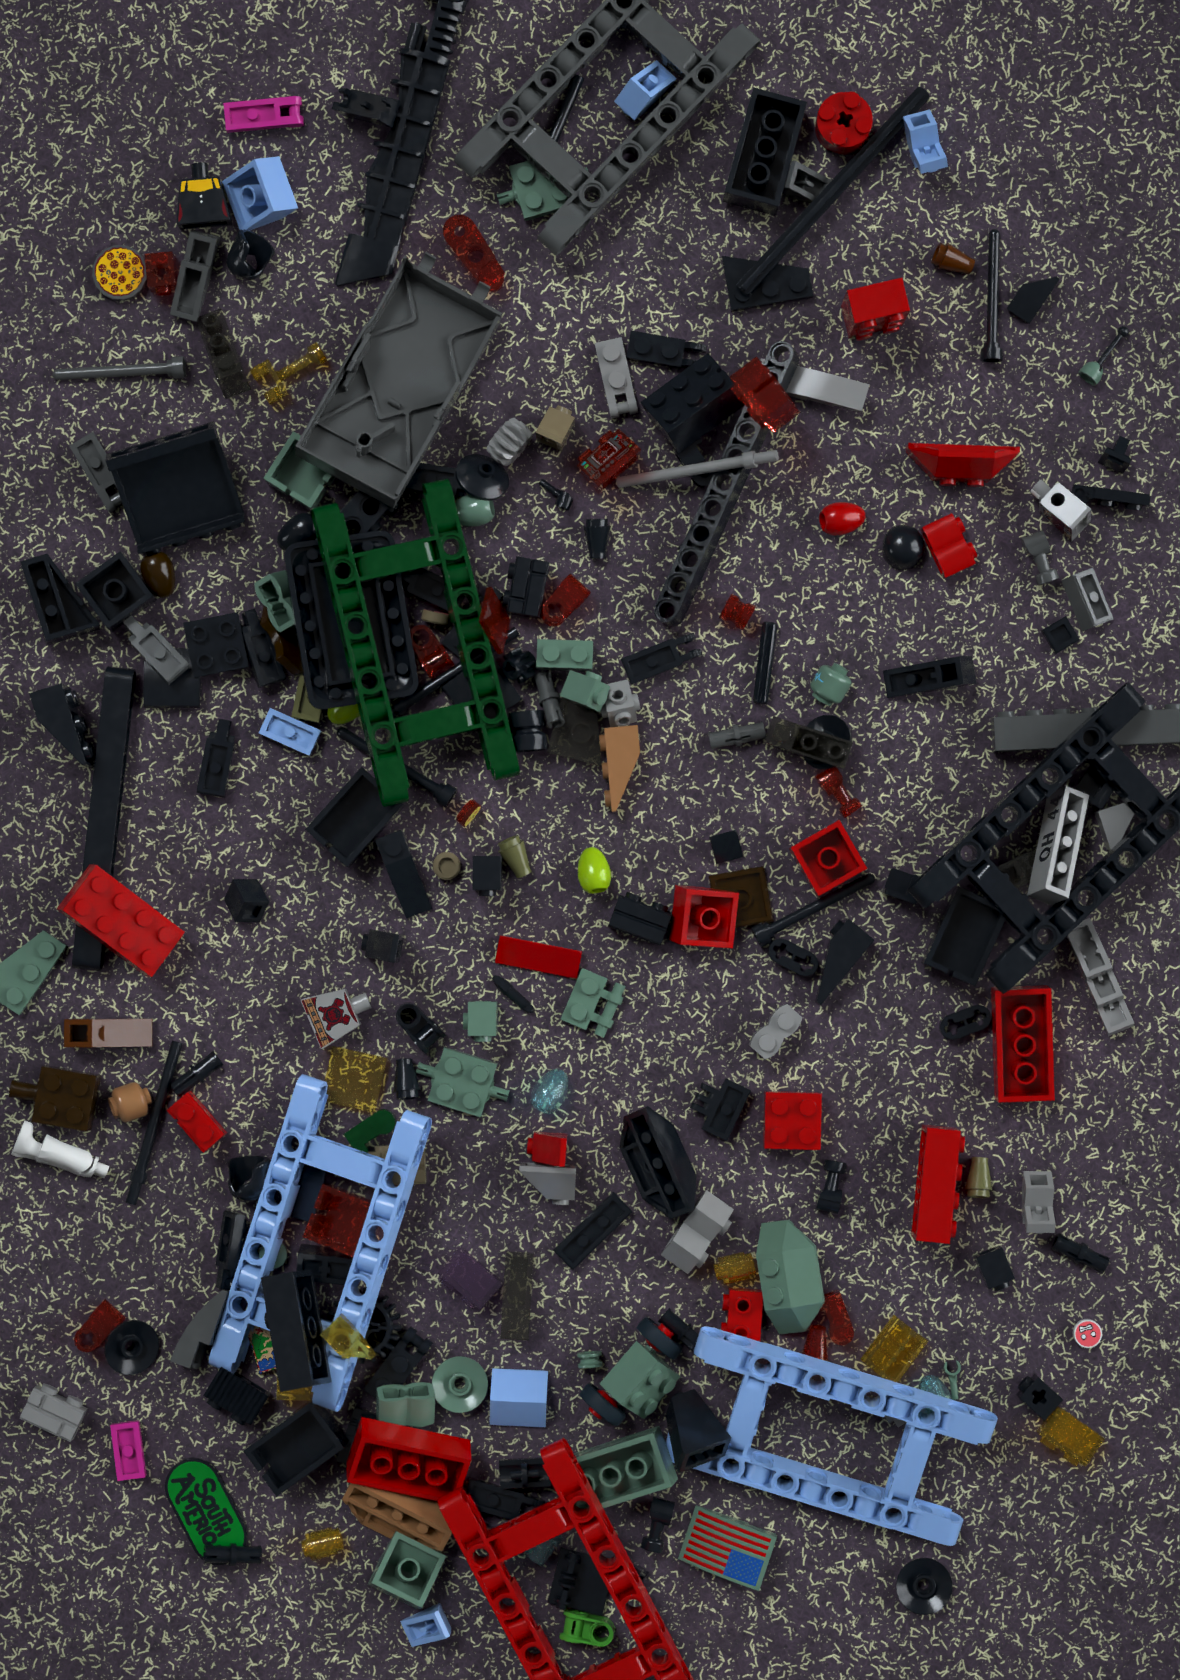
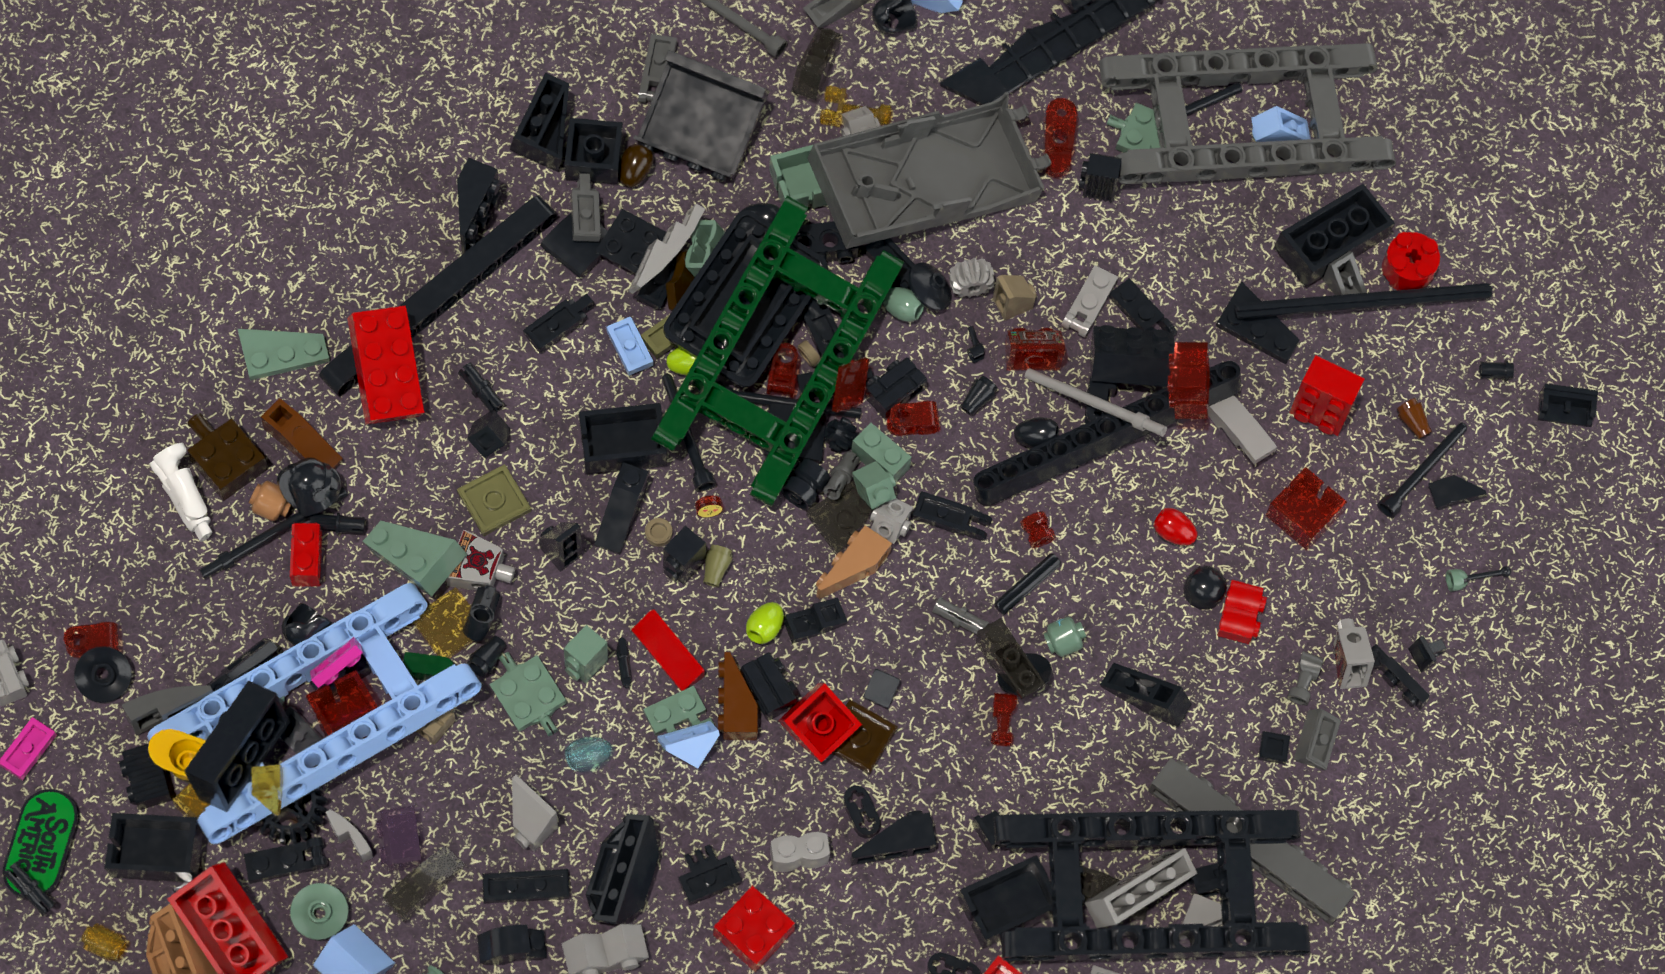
camera: 30 degrees right, 20 degrees down
(152, 1067) = (309, 485): none -> black helmet
(206, 868) = (481, 388): none -> black pin
(248, 1362) = (174, 750): none -> yellow piece
(252, 642) = (662, 252): none -> light grey slope
(285, 1055) = (415, 554): none -> sand green wedge
(297, 949) = (494, 500): none -> olive tile
(304, 1193) = (328, 669): none -> dark pink plate
(308, 384) = (858, 120): none -> light grey brick
(372, 1051) = (481, 613): none -> black piece
(406, 1404) = (266, 889): sand green brick -> none
(420, 1027) = (532, 628): black piece -> none
(421, 1306) = (345, 830): none -> light grey slope
(538, 264) = (1100, 177): none -> black brick
(548, 1148) = (553, 788): red slope -> none
(622, 1019) = (691, 743): none -> light blue slope
(625, 1287) = (511, 943): none -> black brick
(628, 834) = (814, 621): none -> black slope
(633, 957) = (739, 706): none -> reddish brown slope
(669, 530) = (1036, 431): none -> black animal
(766, 932) = (856, 775): black piece -> none
(828, 858) = (952, 757): red brick -> none
(923, 142) = (1461, 319): light blue brick -> none
(931, 418) = (1303, 513): none -> clear red piece
(961, 462) = (1303, 562): red wedge -> none
(984, 160) = (1496, 370): none -> black pin
(1063, 144) = (1567, 405): none -> black hinge

